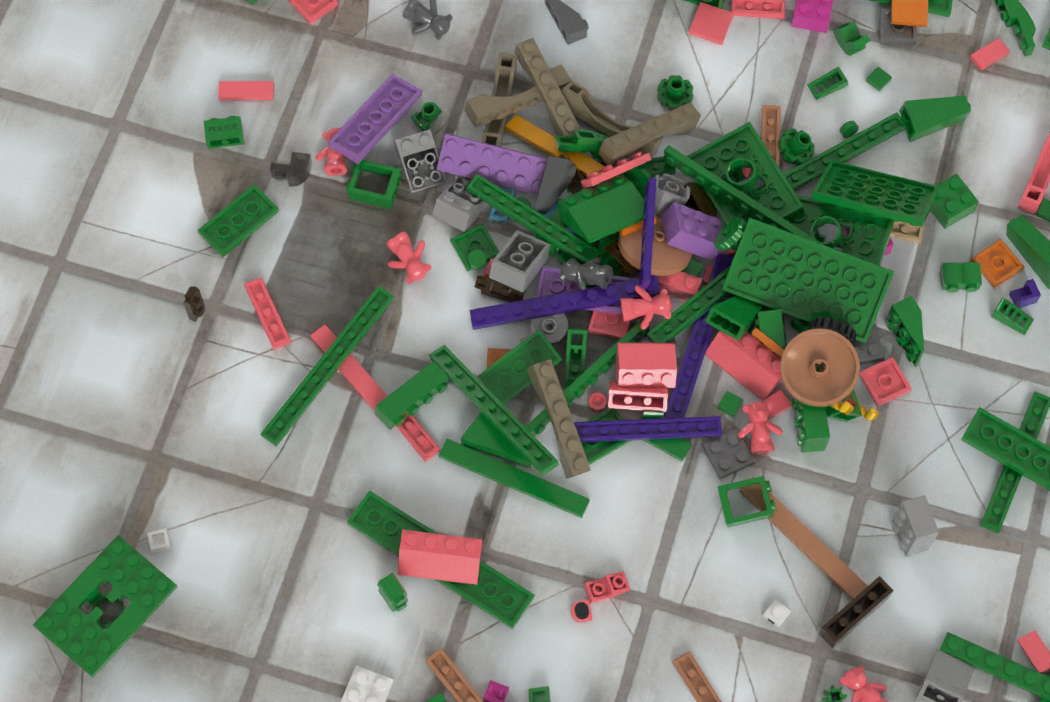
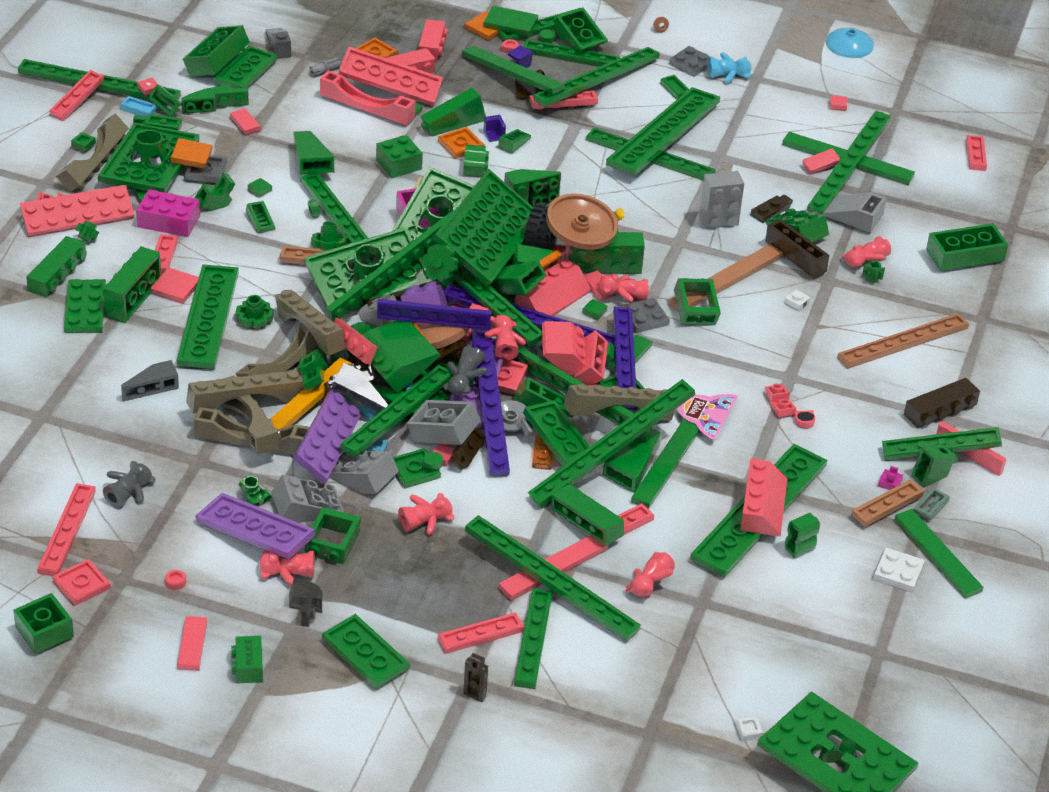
camera: 90 degrees left, 25 degrees down
(261, 356) = (533, 639): none -> green tile
(319, 70) = (175, 579): none -> coral tile
(338, 454) = (657, 567): none -> coral piece
(578, 511) = (708, 412): none -> sticker
(667, 54) = (208, 316): none -> green plate
(875, 193) = (399, 181): green plate -> none
(904, 618) = (810, 225): none -> green slope
(940, 593) = (771, 207): none -> dark brown hinge

